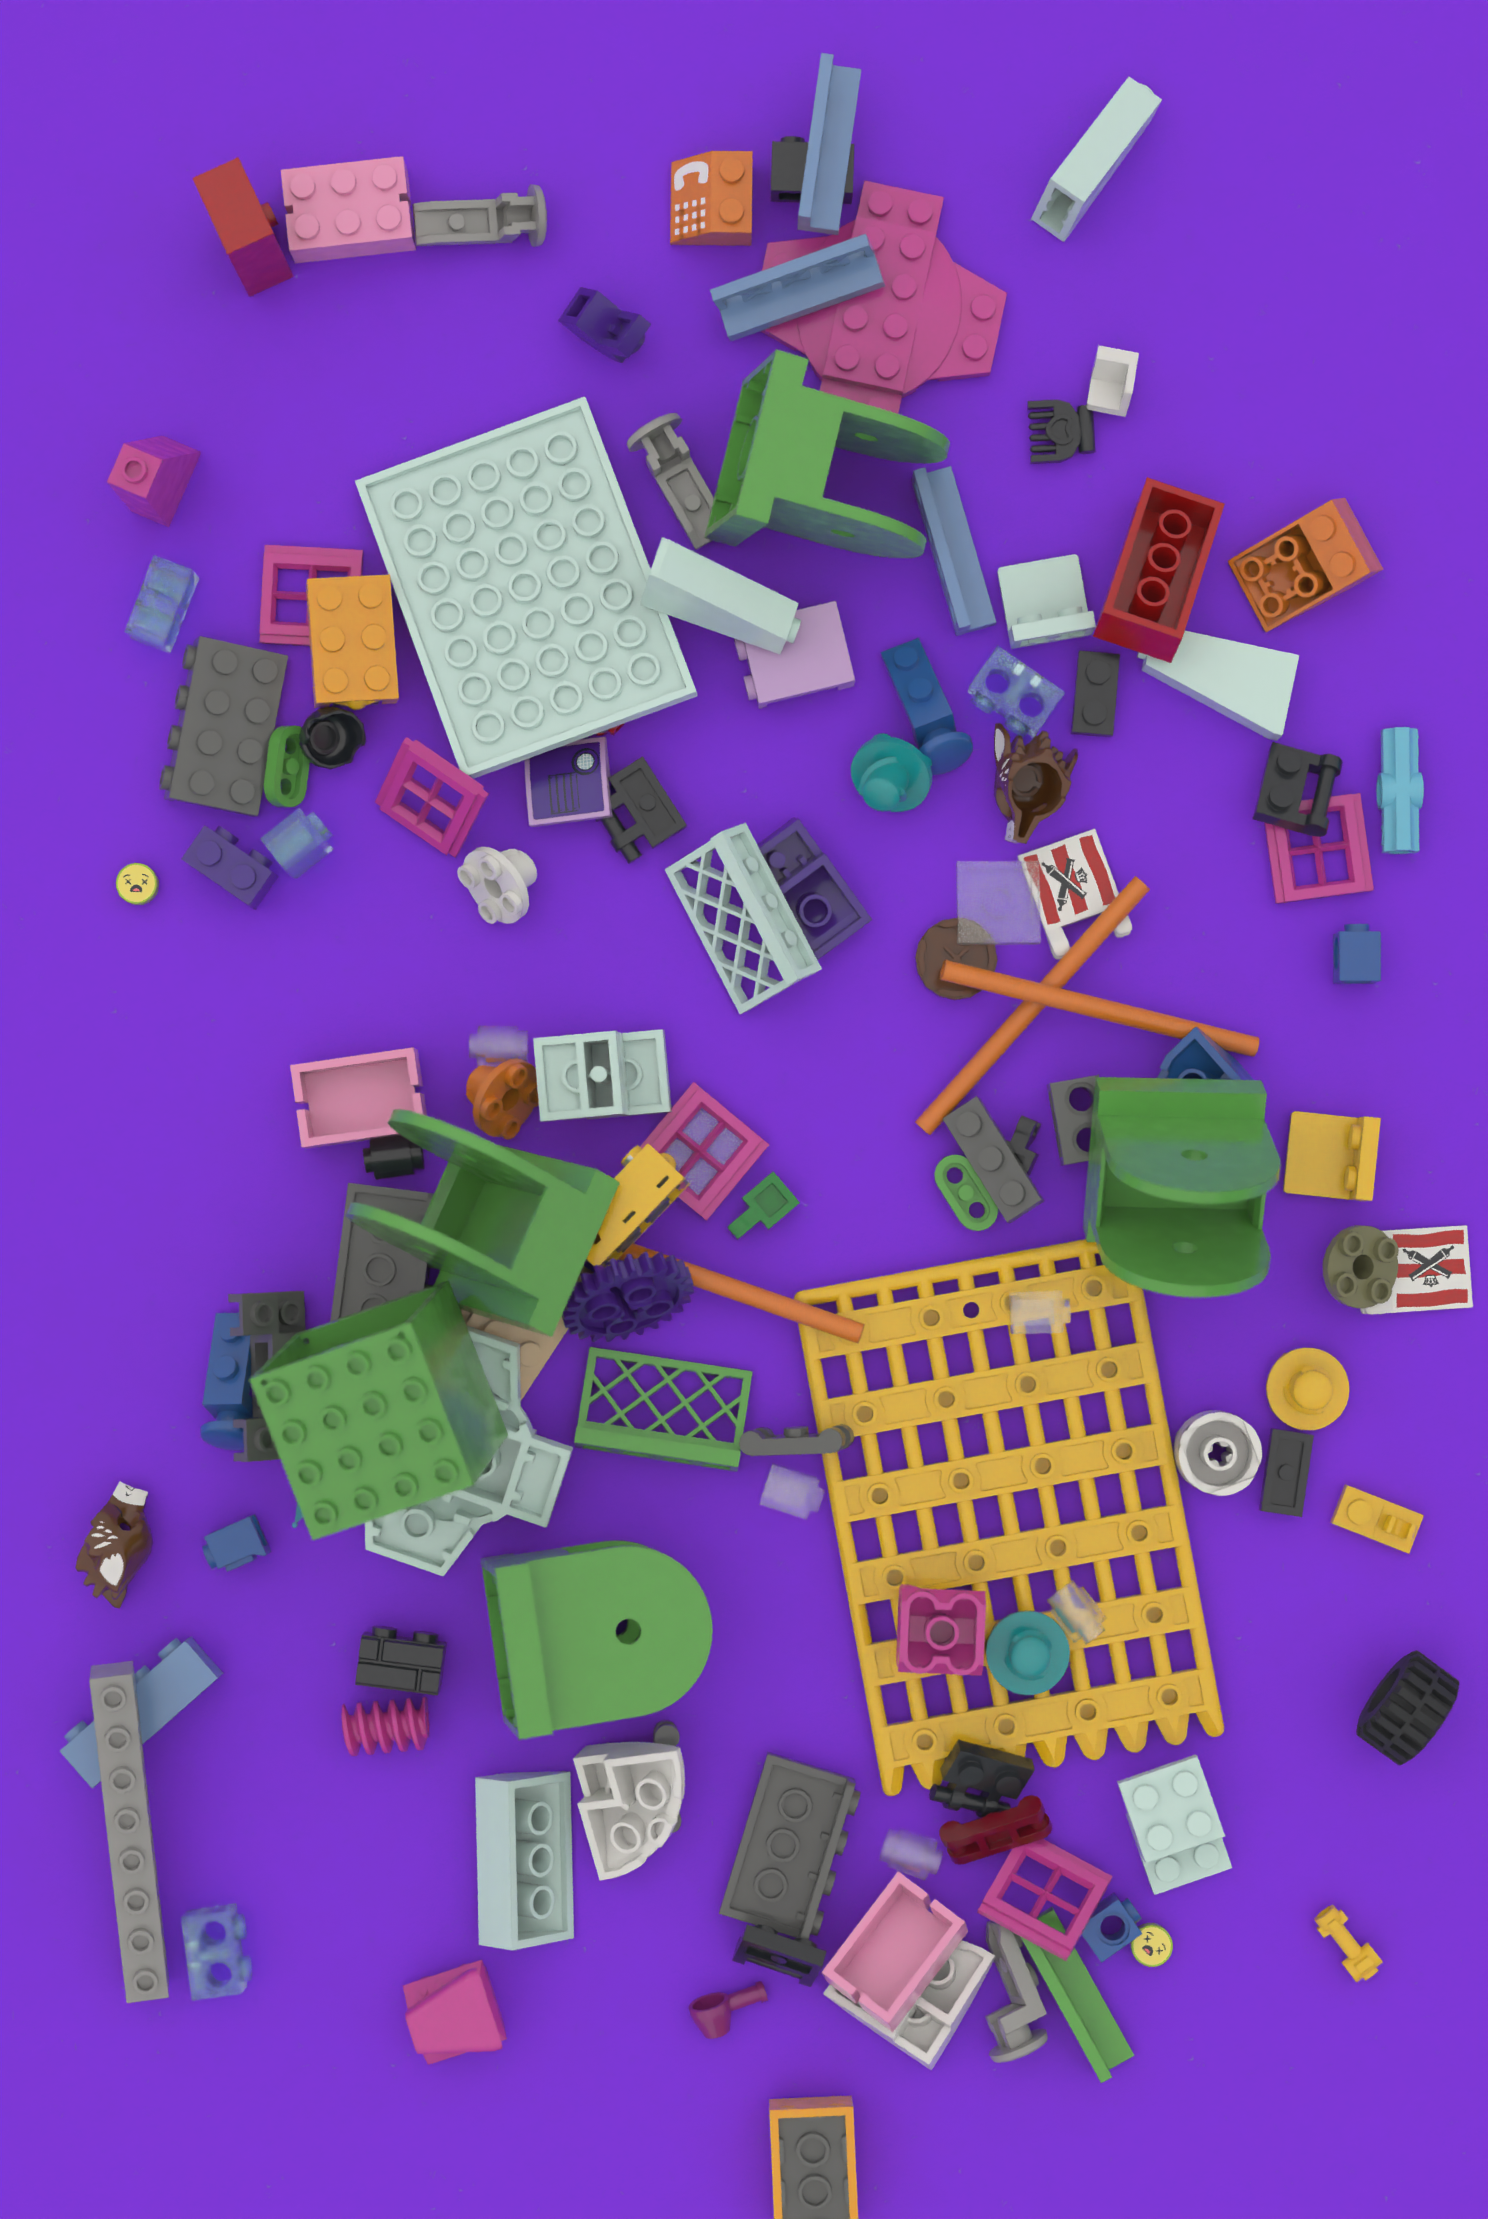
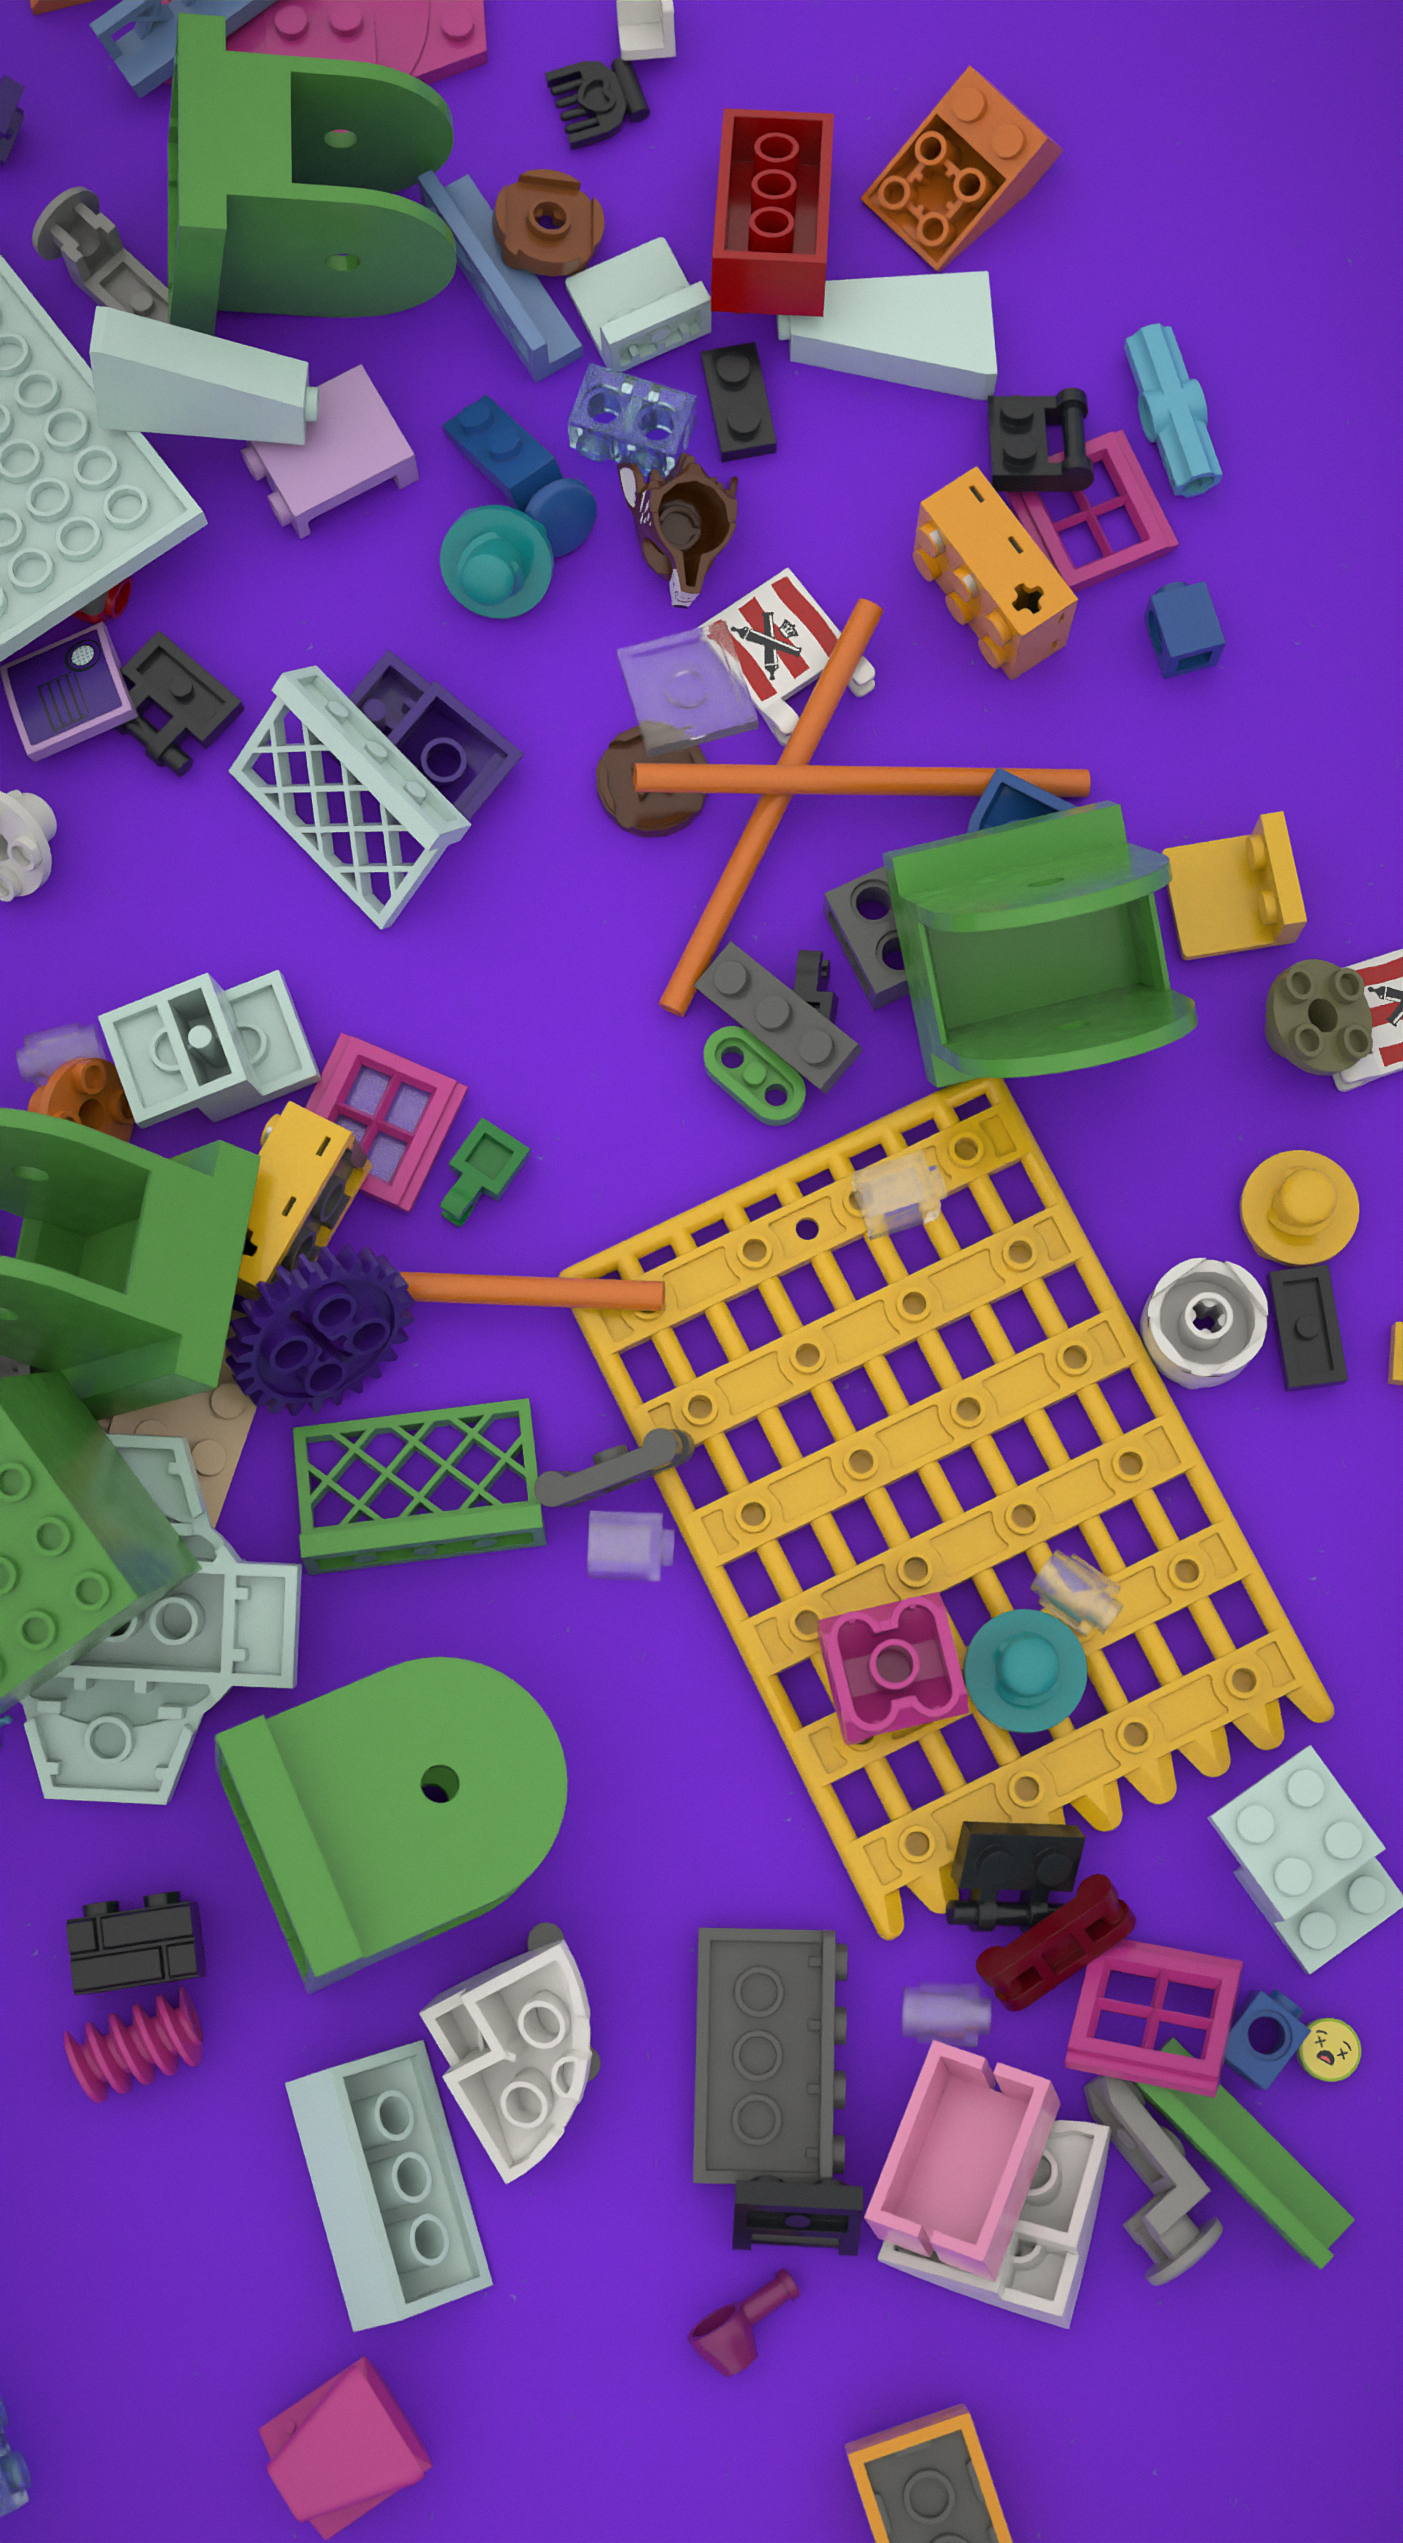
camera: 15 degrees left, 10 degrees down
(1017, 514) = (544, 250): none -> dark orange plate
(1233, 884) = (993, 574): none -> light orange piece

